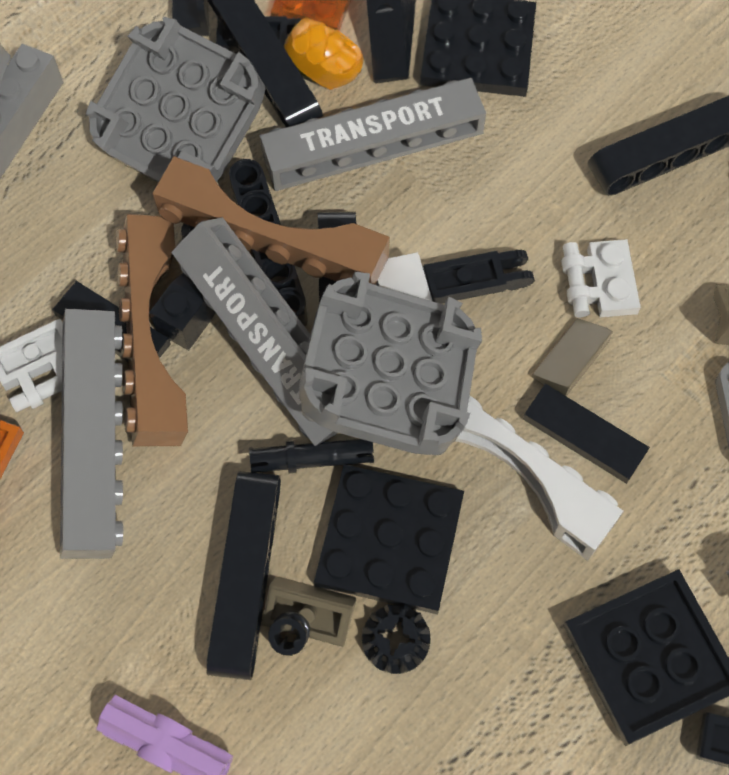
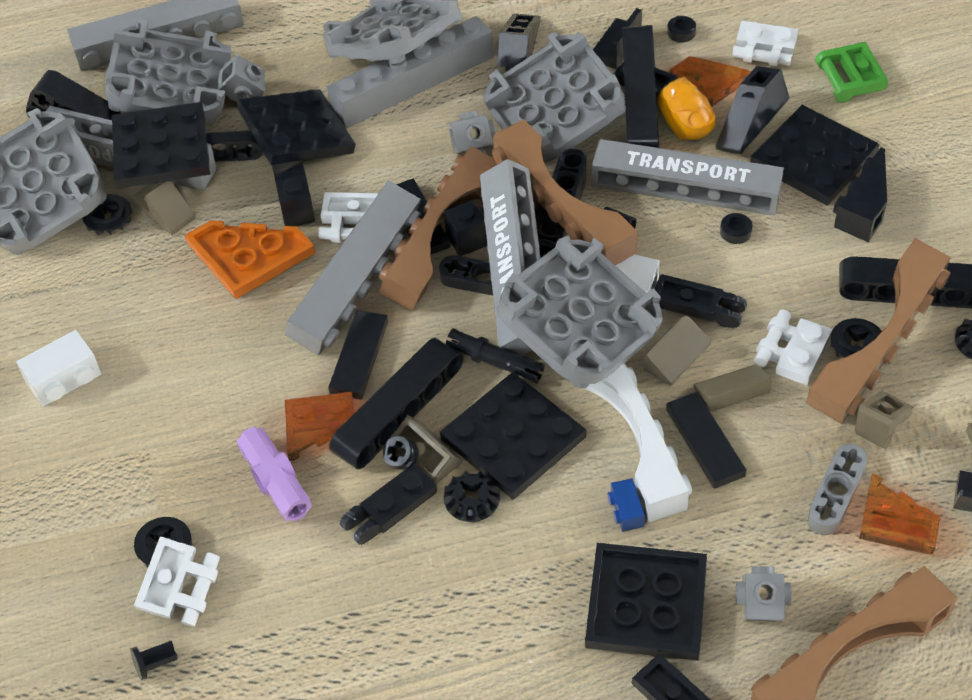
camera: 35 degrees right, 15 degrees down
(84, 50) = (517, 39): none -> slope
(109, 194) = (460, 132): none -> light grey brick
(159, 535) = (358, 353): none -> black tile
(166, 644) = (315, 420): none -> clear orange wing
(210, 381) = (459, 280): none -> black beam
(316, 697) = (389, 504): none -> black hinge
(457, 168) = (736, 228): none -> black tile
(496, 350) = (676, 350): none -> dark tan slope
(560, 555) = (627, 505): none -> blue piece
(569, 72) = (866, 199): none -> black slope
(673, 239) = (854, 329): none -> black gear
(687, 150) = (843, 381): none -> medium nougat arch

